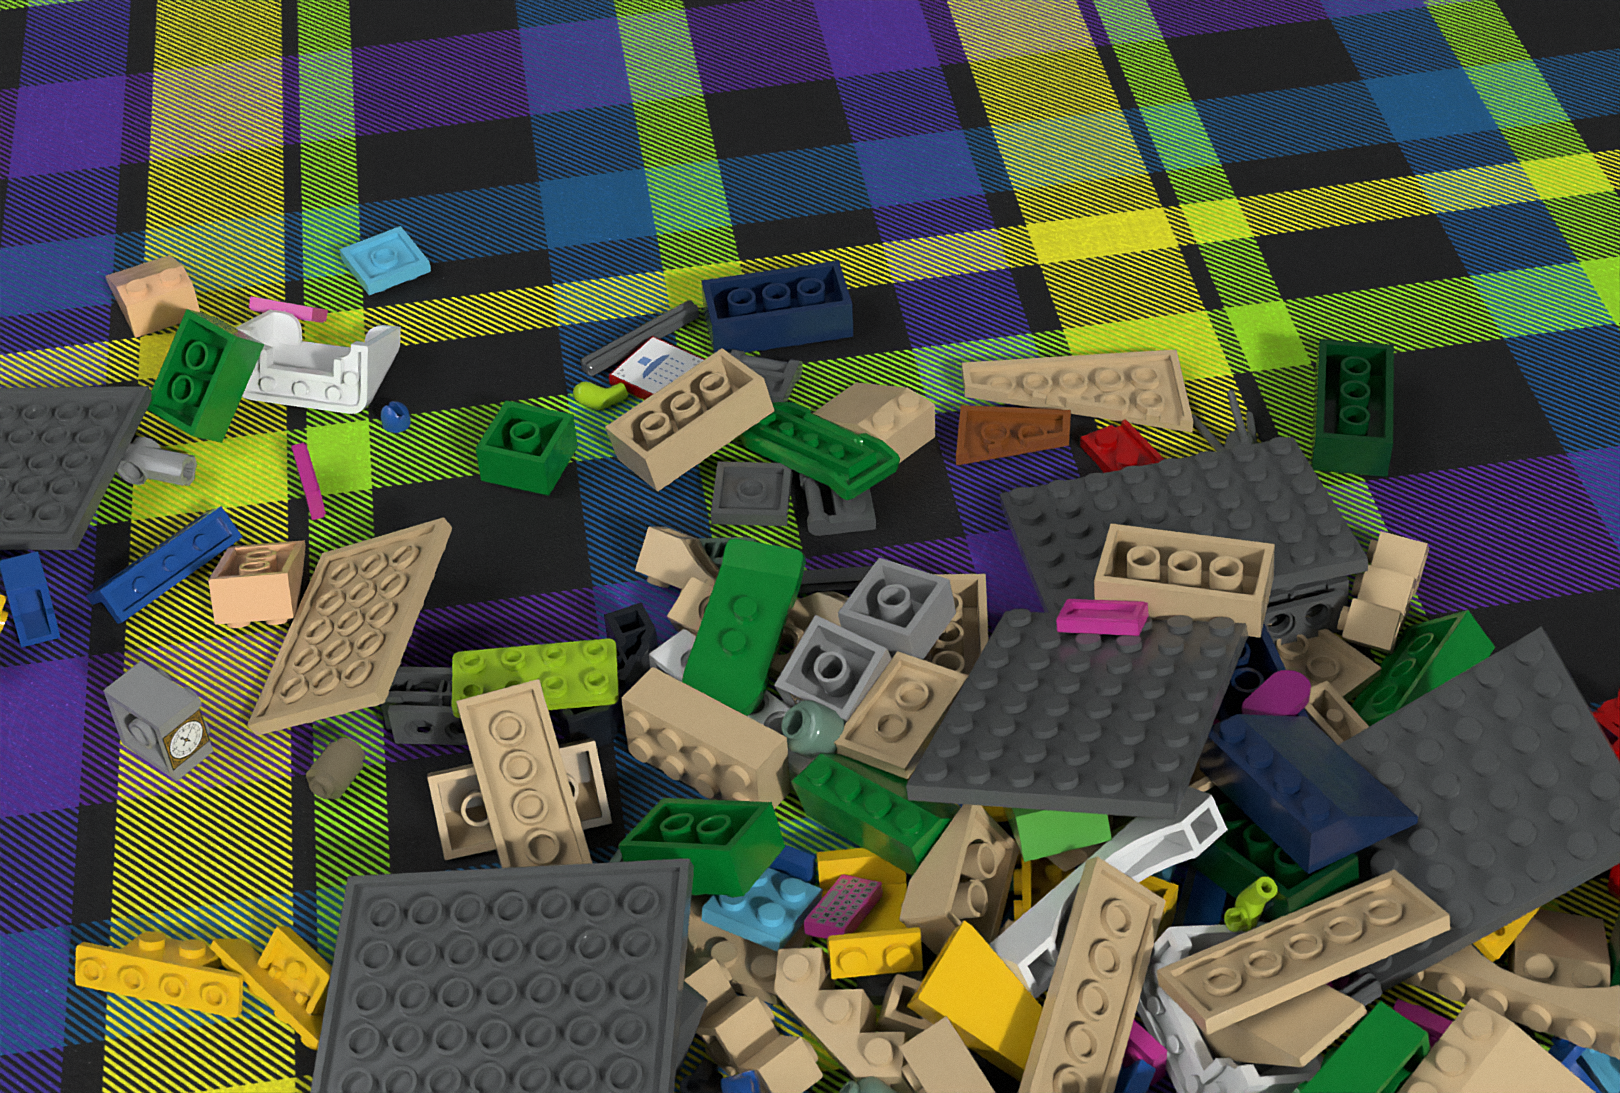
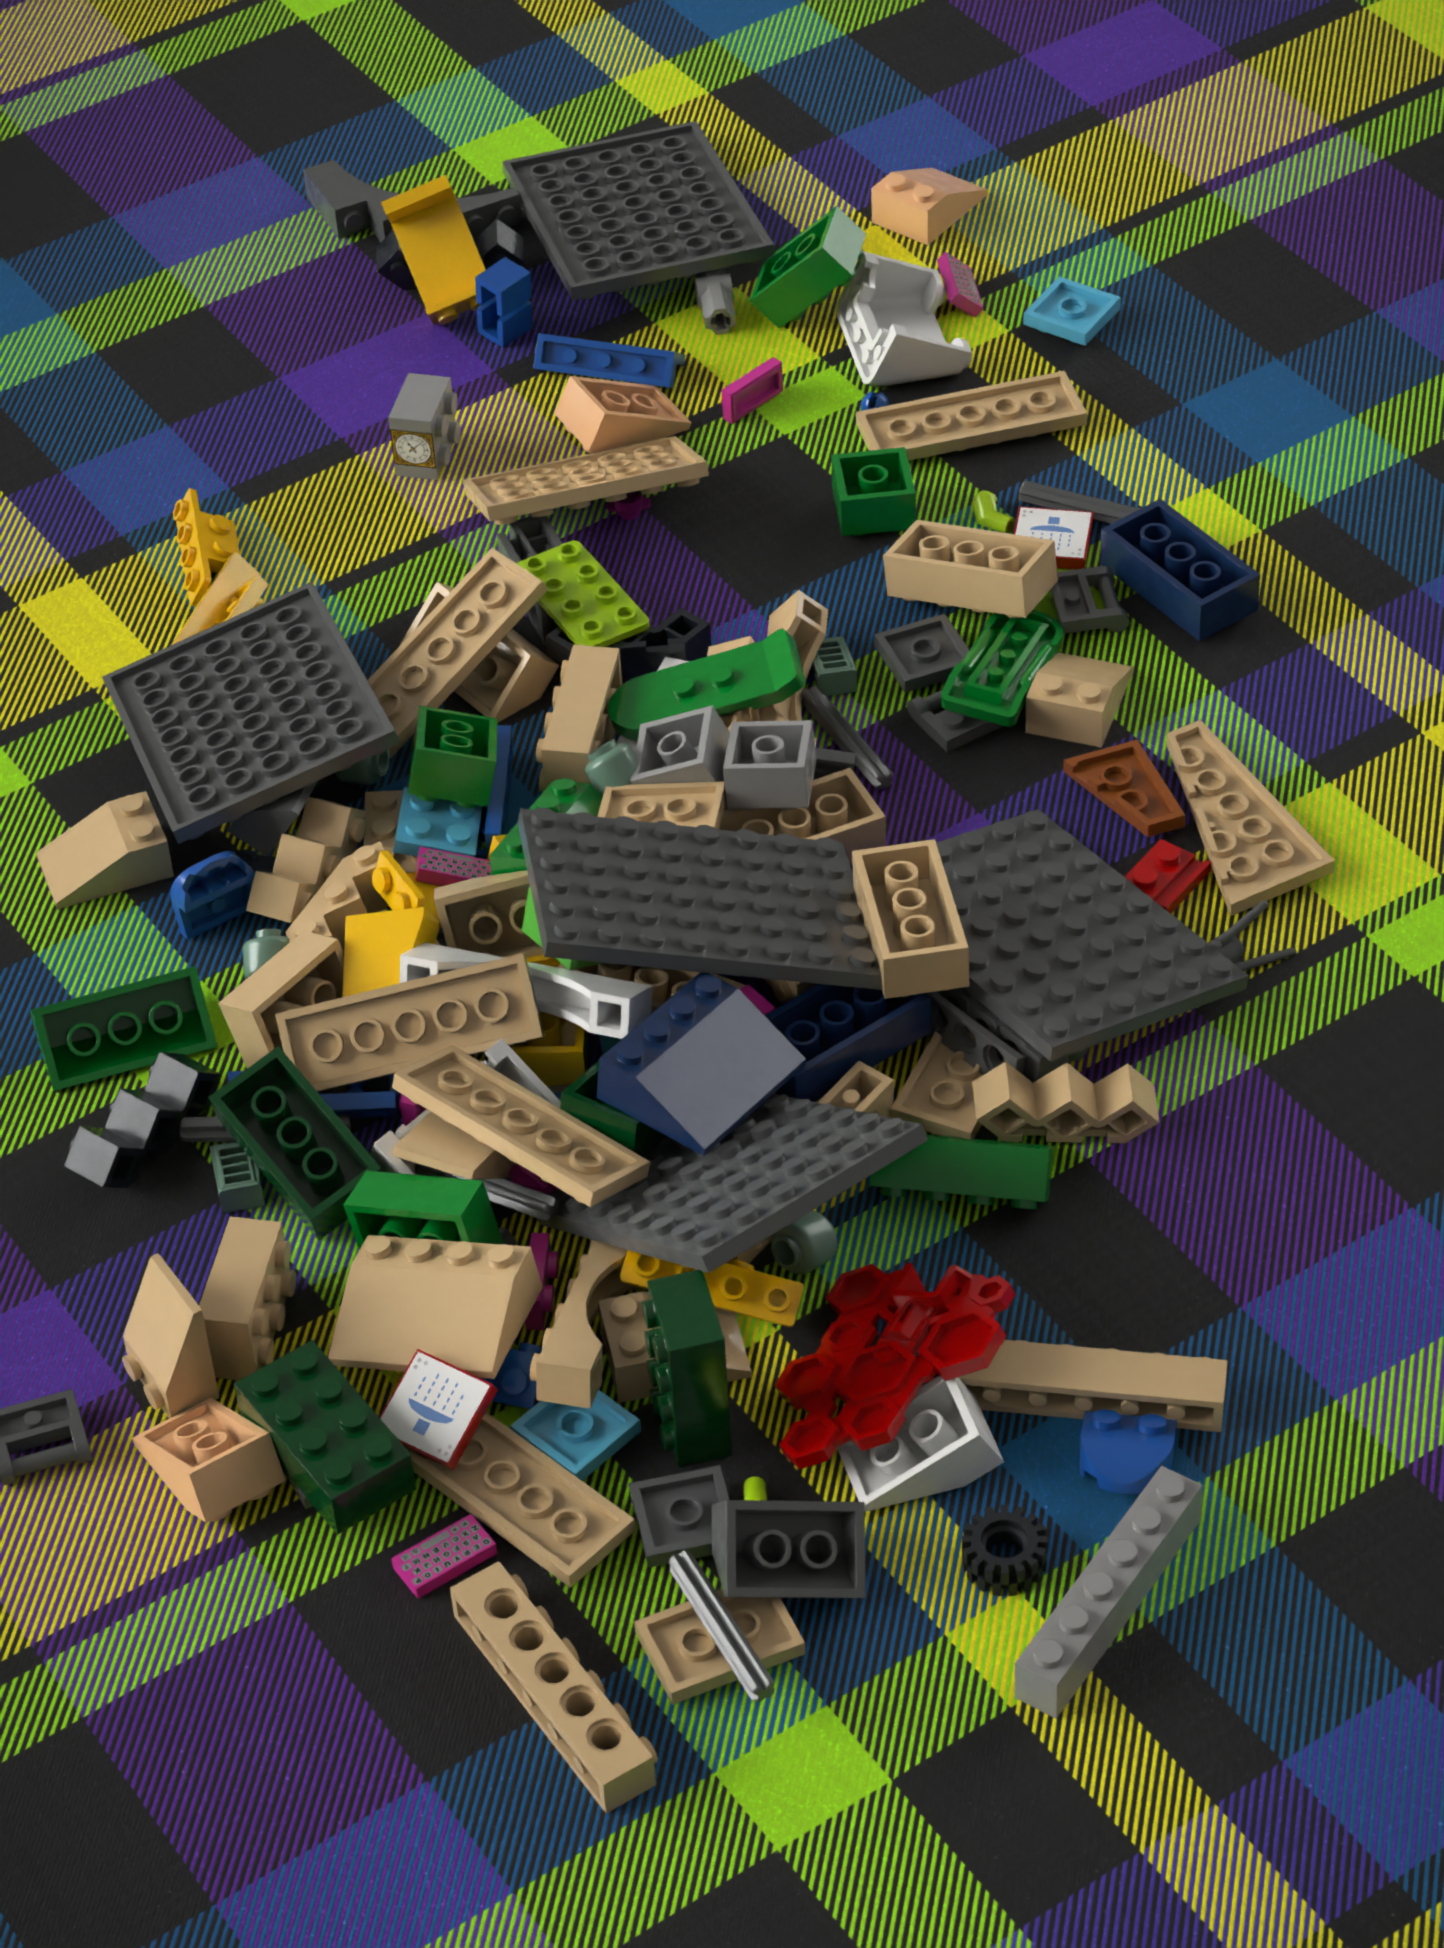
camera: 65 degrees right, 0 degrees up
(335, 768) = (445, 544): dark tan brick -> none
(468, 366) = (974, 417): none -> tan plate
(1102, 617) = (832, 883): dark pink tile -> none
(1250, 905) = (560, 1080): lime arm -> none
(1279, 695) = (814, 1032): magenta tile -> none
(1353, 408) = (1331, 1008): dark green brick -> none

